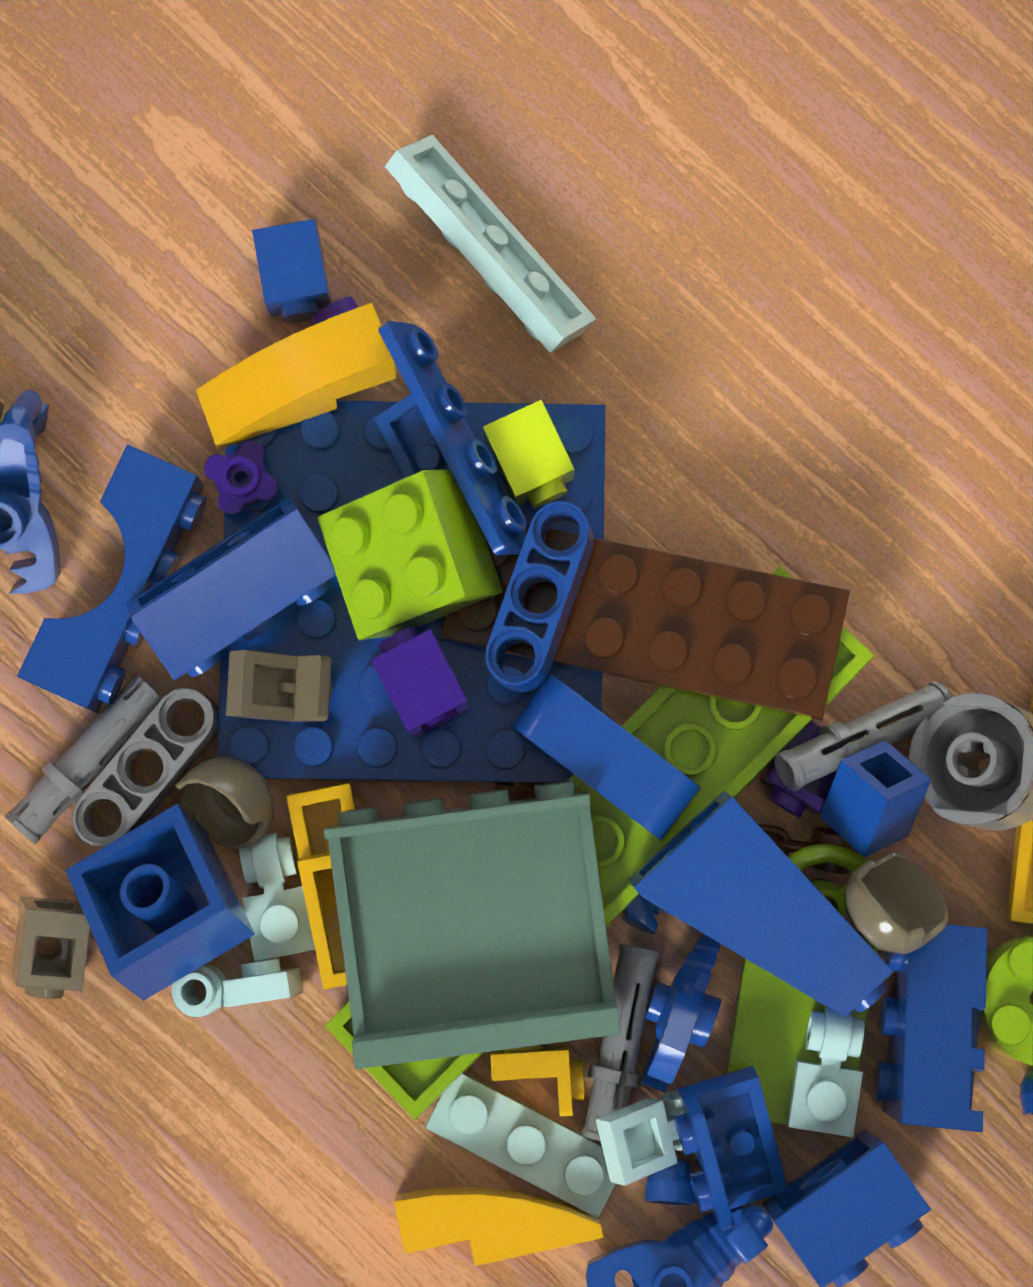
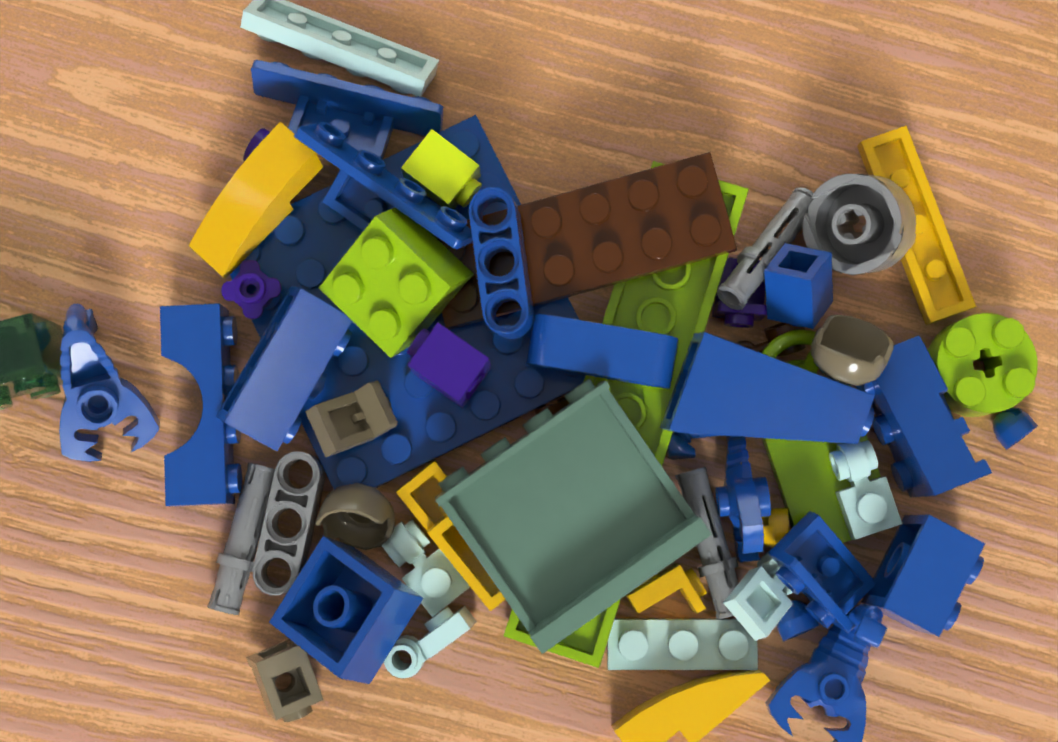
camera: 30 degrees left, 0 degrees up
(292, 270) = (213, 130): blue brick -> none
(470, 336) = (361, 112): none -> blue bracket
(703, 1063) = (775, 526): none -> yellow hinge

